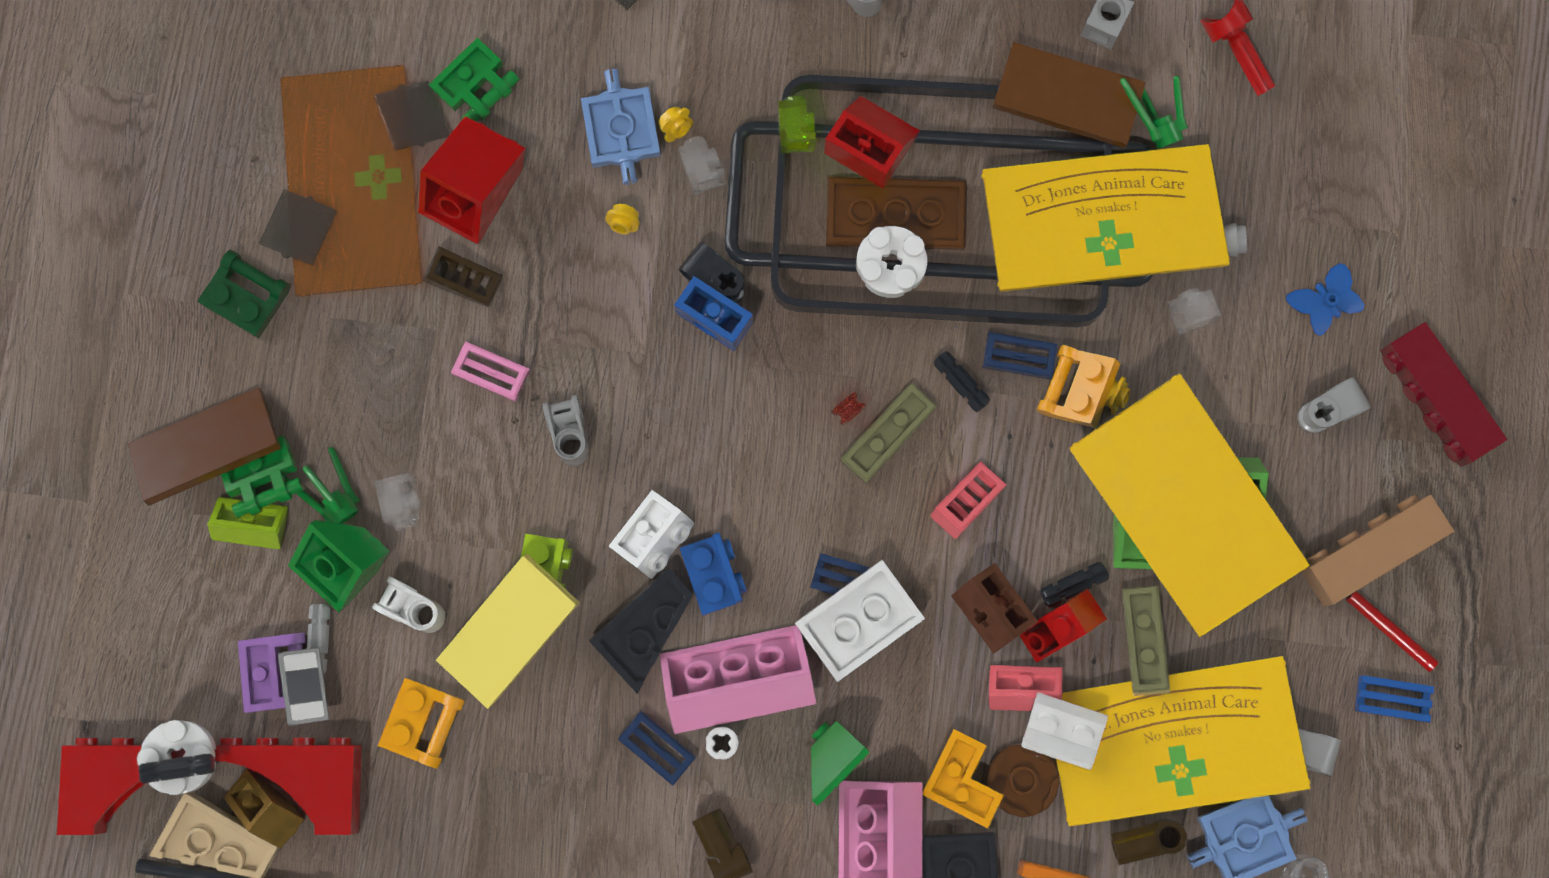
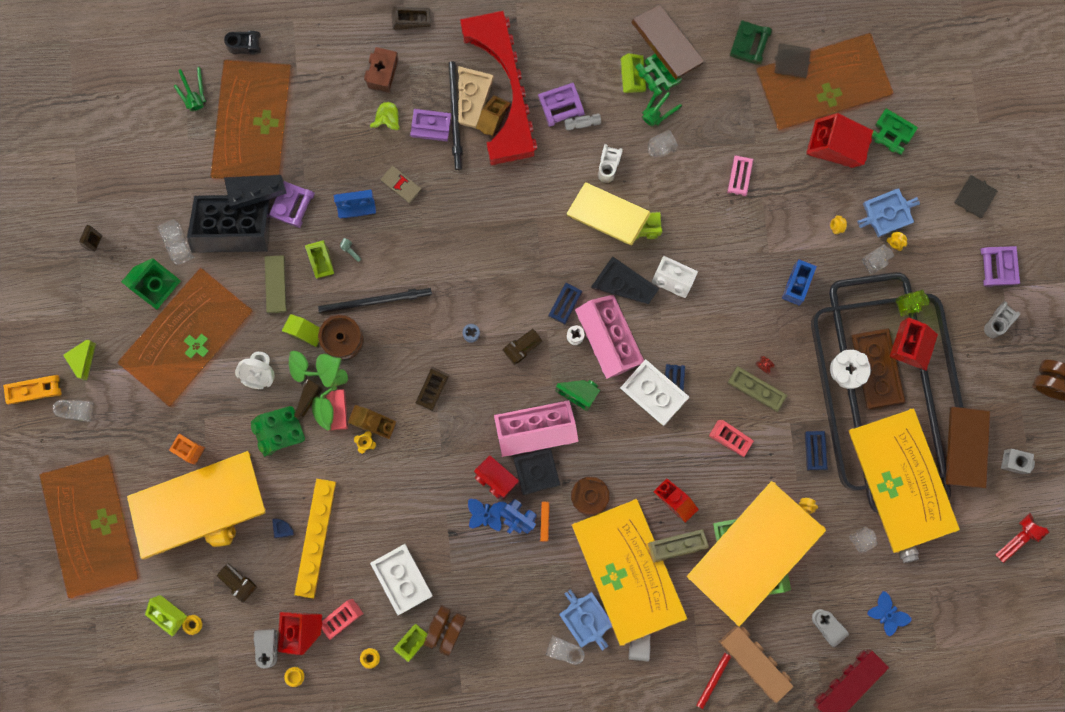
camera: 75 degrees right, 0 degrees up
(176, 768) = (505, 67): black axle -> none
(177, 735) = (511, 77): white plate -> none
(303, 686) = (558, 119): slope -> none
(337, 560) = (624, 121): green slope -> none
(411, 115) = (866, 103): clear smoke piece -> none
(411, 717) = (552, 176): light orange plate -> none
(457, 288) = (784, 133): dark brown slope -> none
(565, 424) = (722, 220): light grey piece -> none
(712, 574) = (661, 312): blue bracket -> none
(713, 270) = (821, 278): black piece -> none
(953, 783) = (581, 458): light orange plate -> none
(961, 381) = (794, 422): black axle -> none
(994, 608) = (677, 461): copper brick -> none
(1018, 686) = (638, 487): coral slope -> none
(1064, 731) = (621, 510): white bracket -> none
(1074, 584) = (700, 503): black axle -> none
(1088, 390) = (806, 489): light orange plate -> none
(1144, 842) = (572, 564): dark brown piece -> none
(1162, 130) = (961, 504): green plant -> none
(1424, 703) = (678, 705): blue tile -> none

